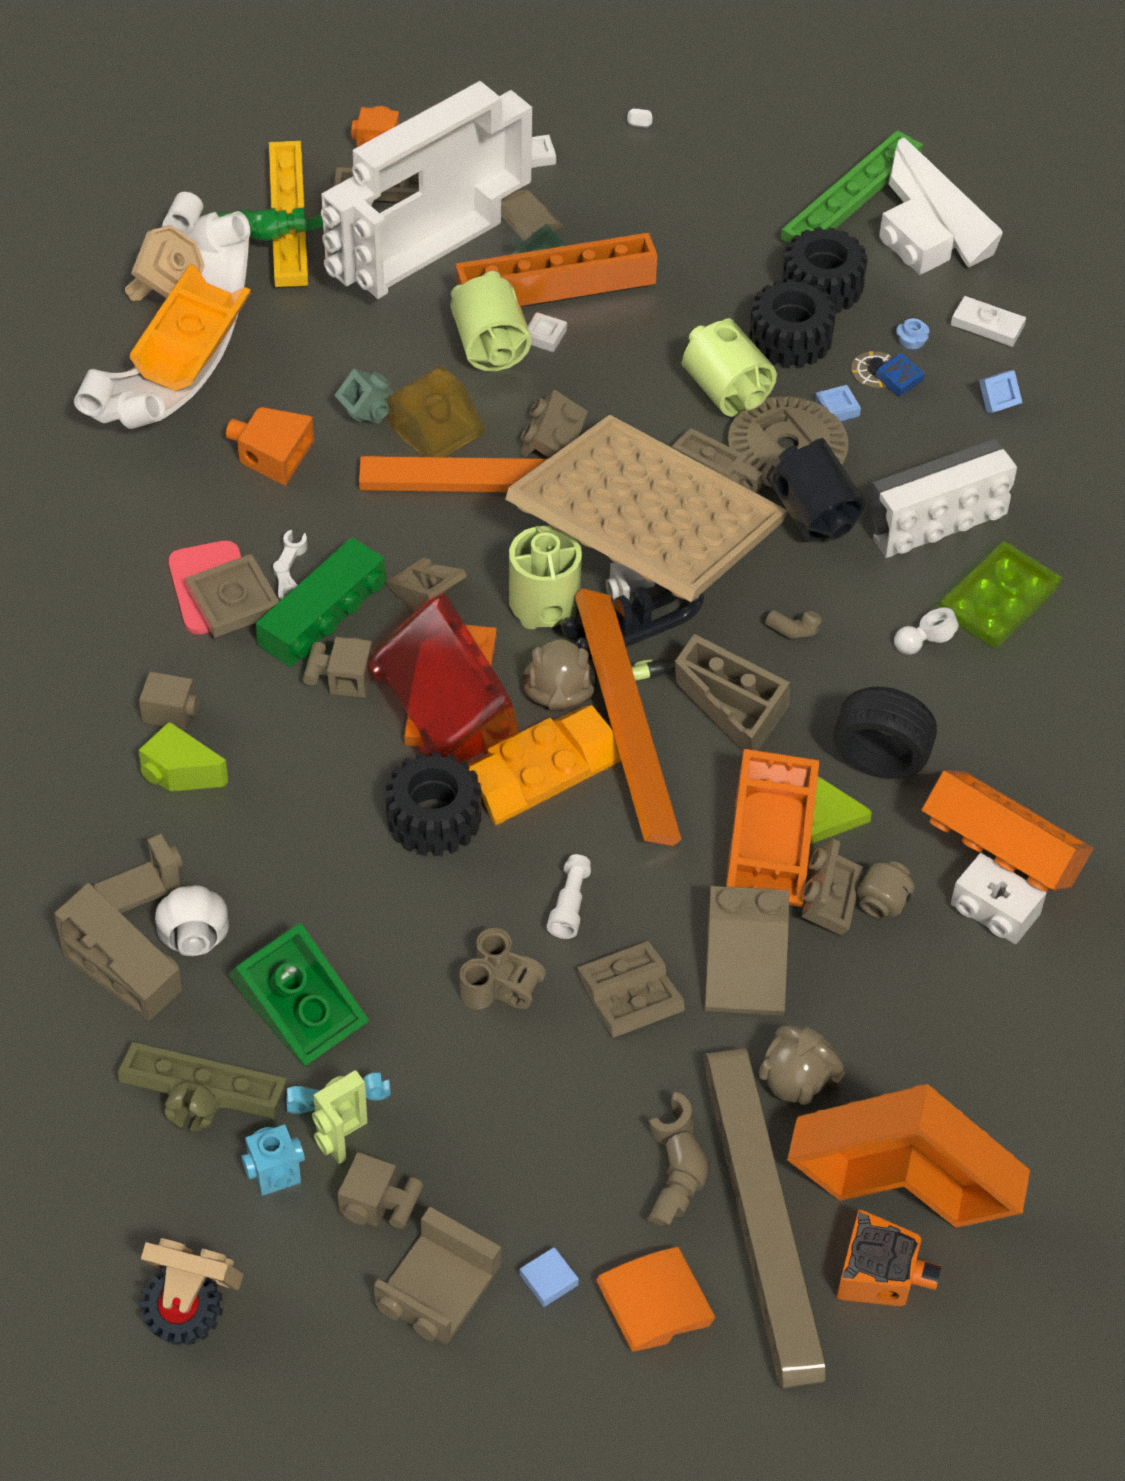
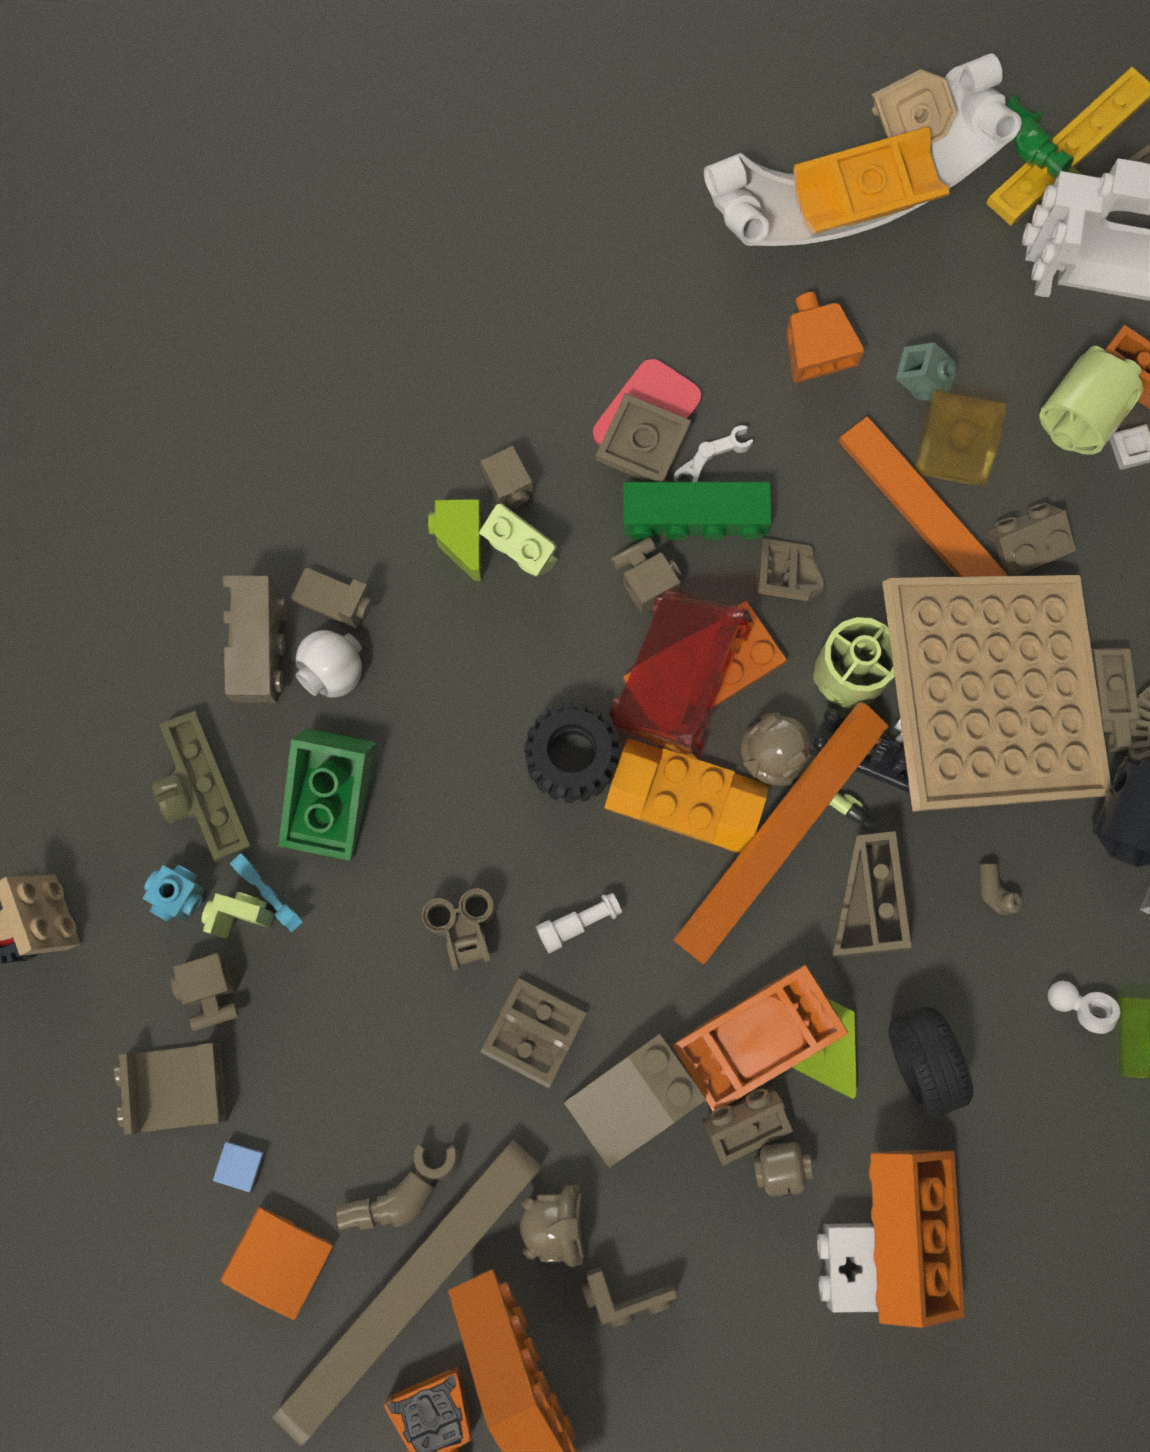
camera: 55 degrees right, 25 degrees up
(229, 718) = (519, 540): none -> yellowish green bracket
(881, 1076) = (598, 1295): none -> dark tan bracket

